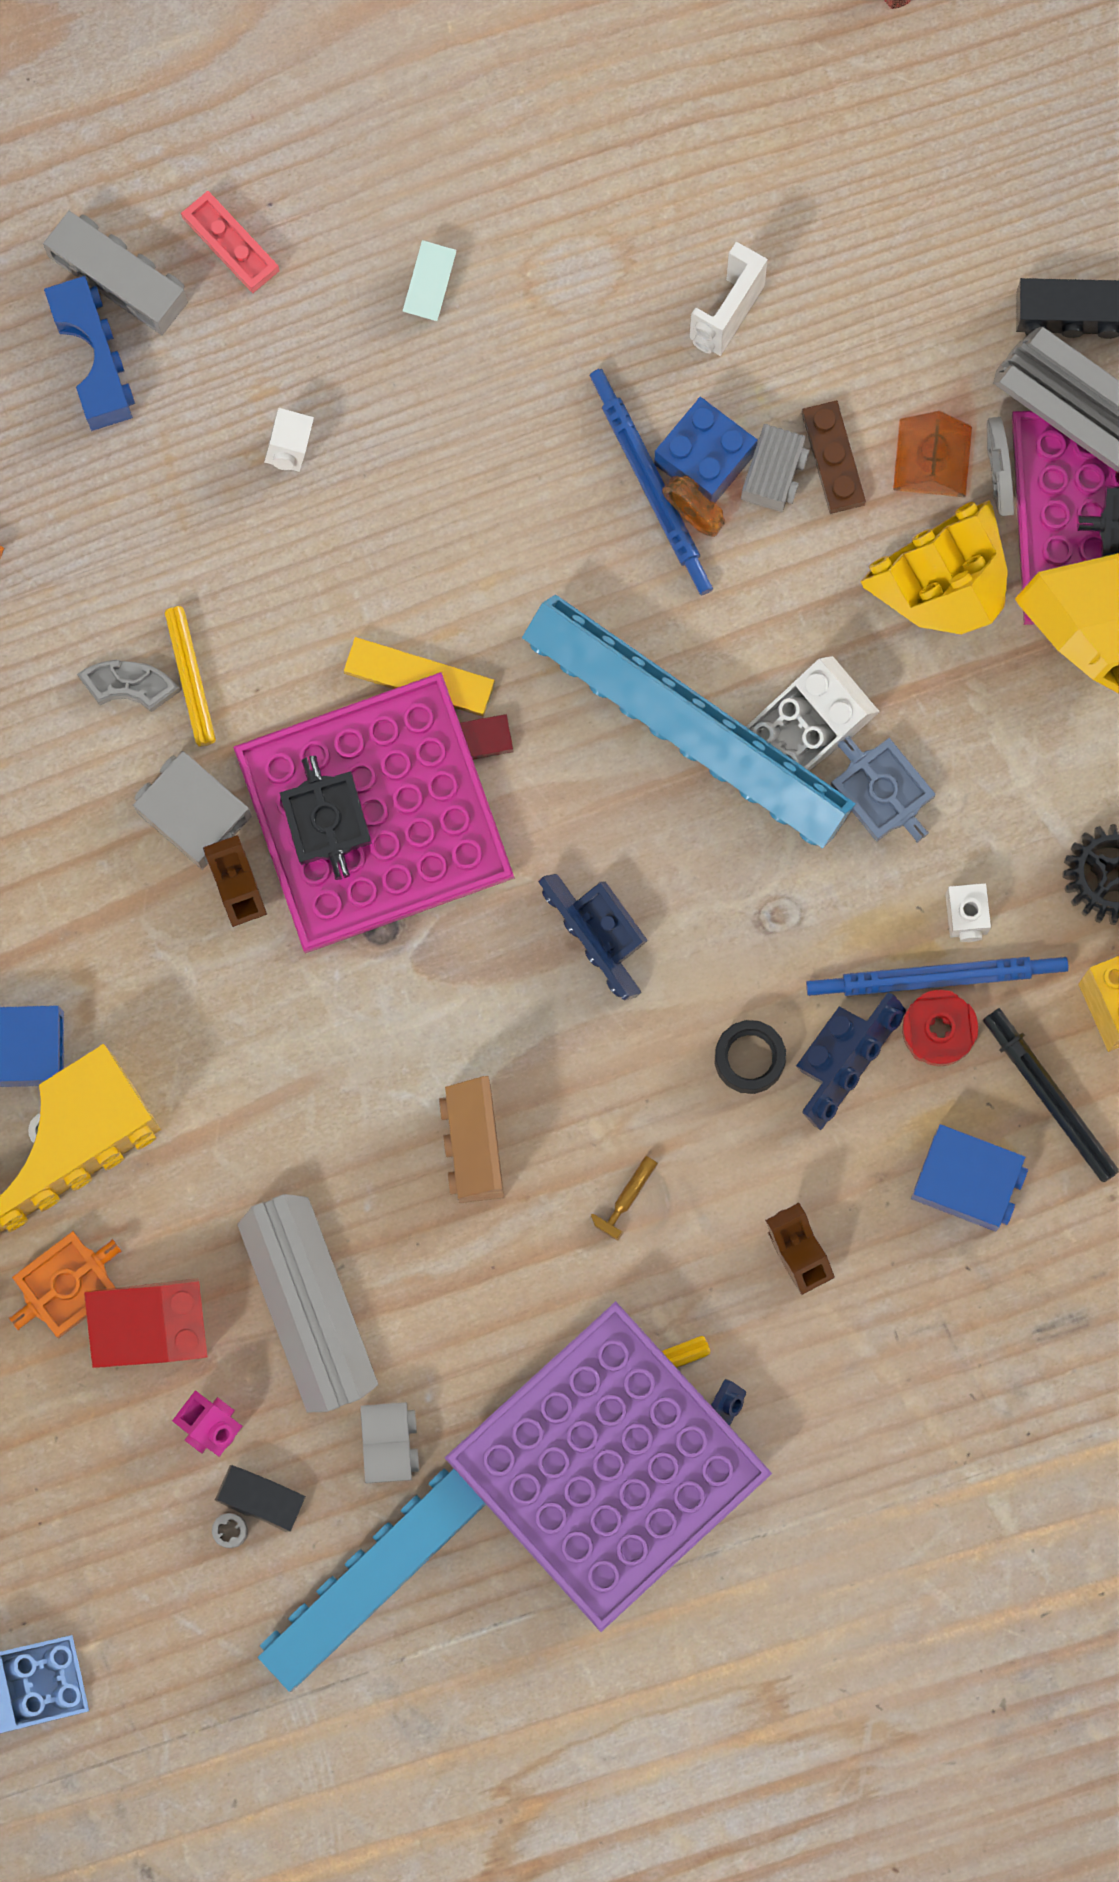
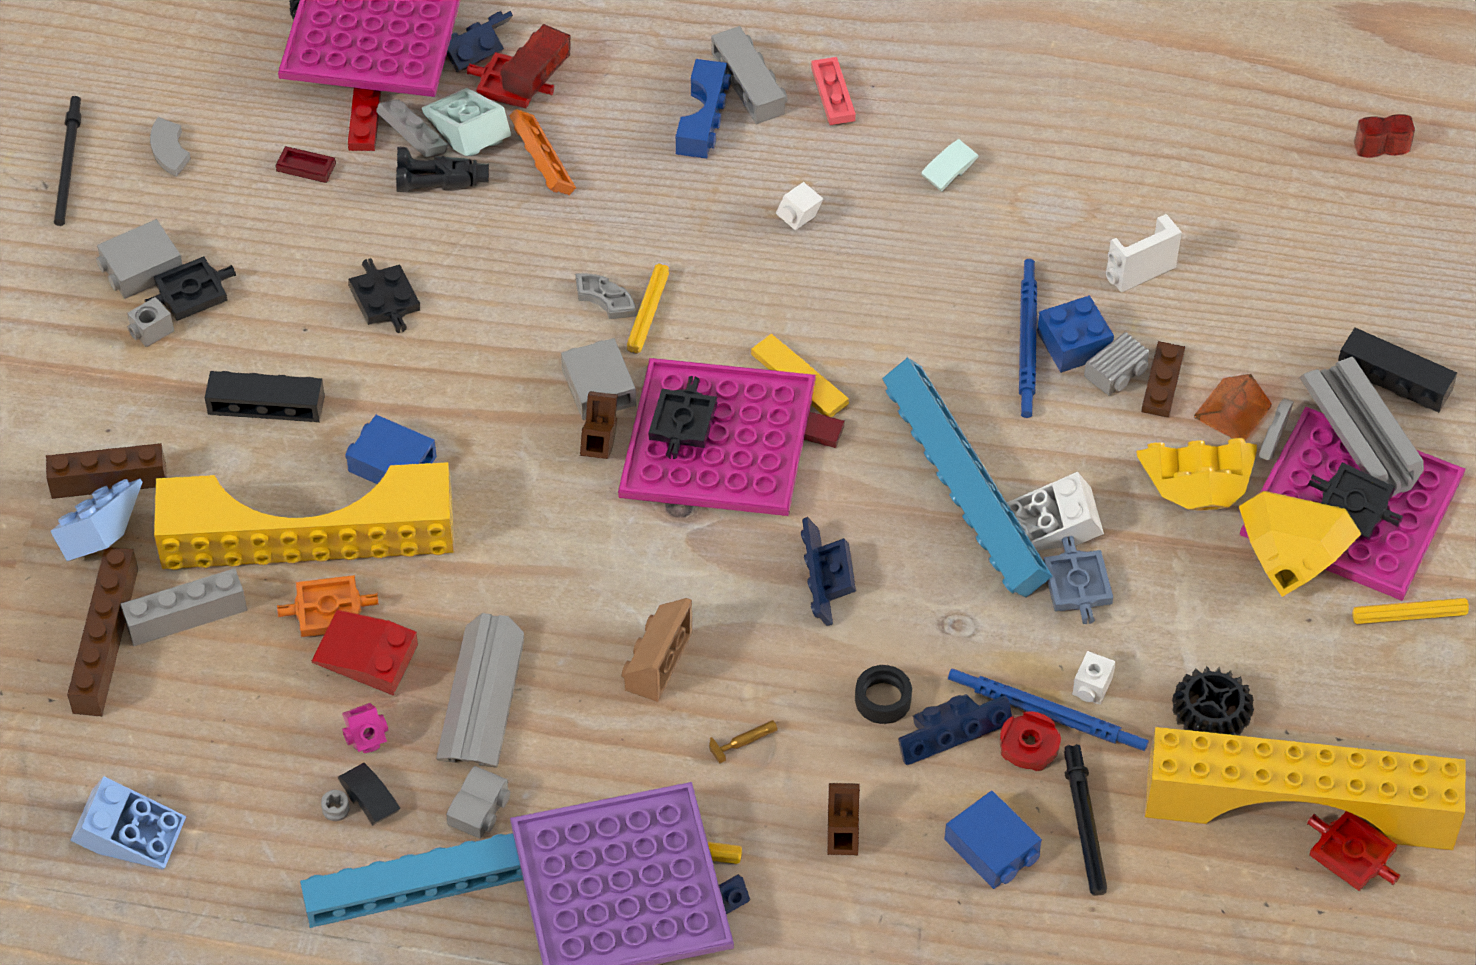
camera: 25 degrees right, 25 degrees down
(693, 505) = (1047, 358): clear orange plate -> none

